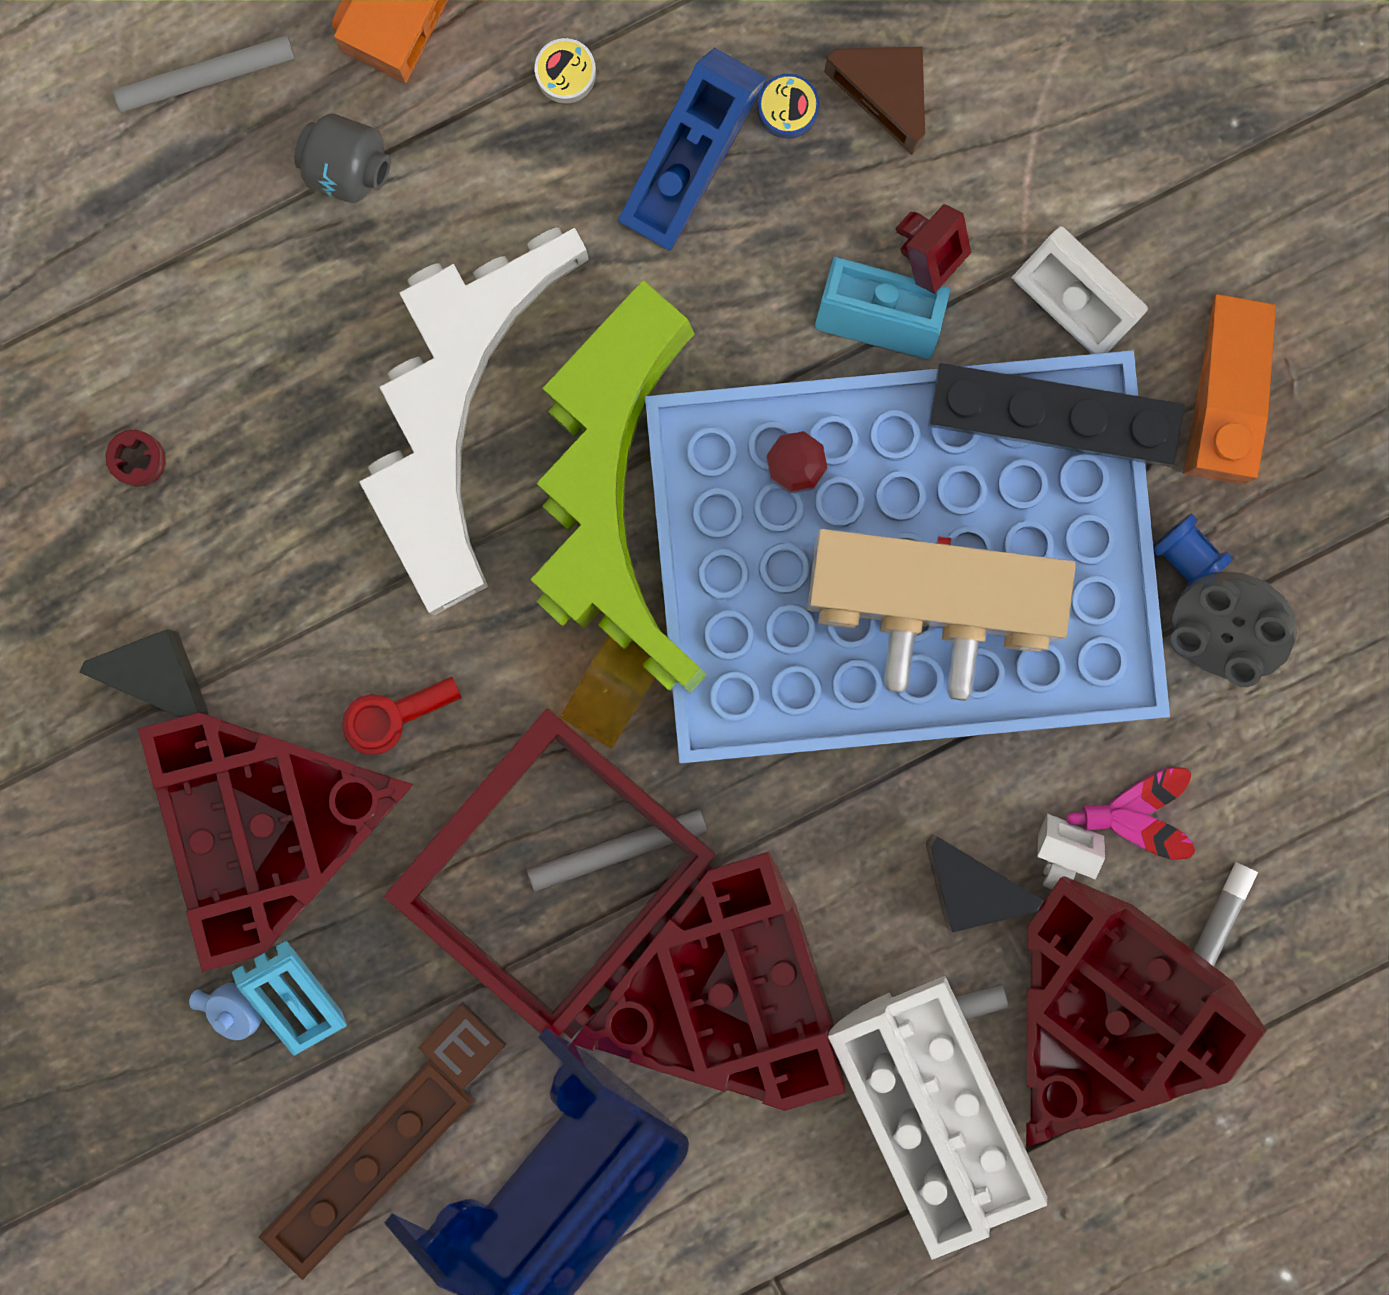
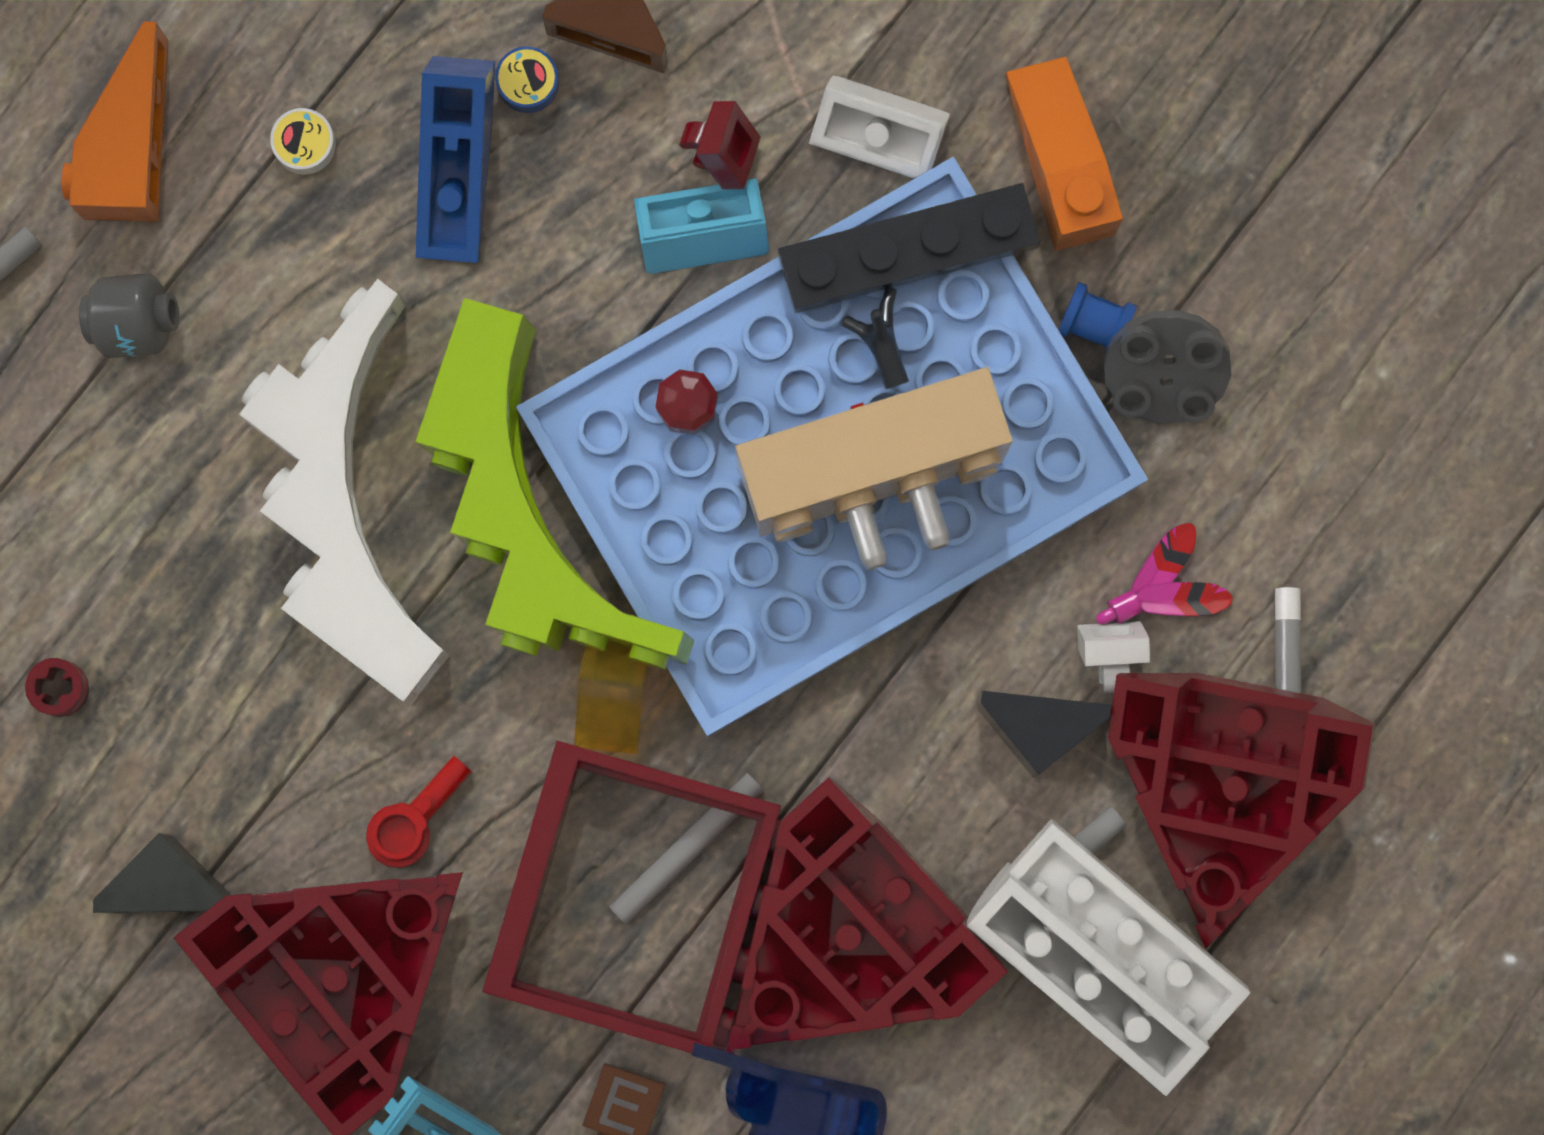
camera: 25 degrees left, 5 degrees down
(993, 486) = (882, 340): none -> black bar

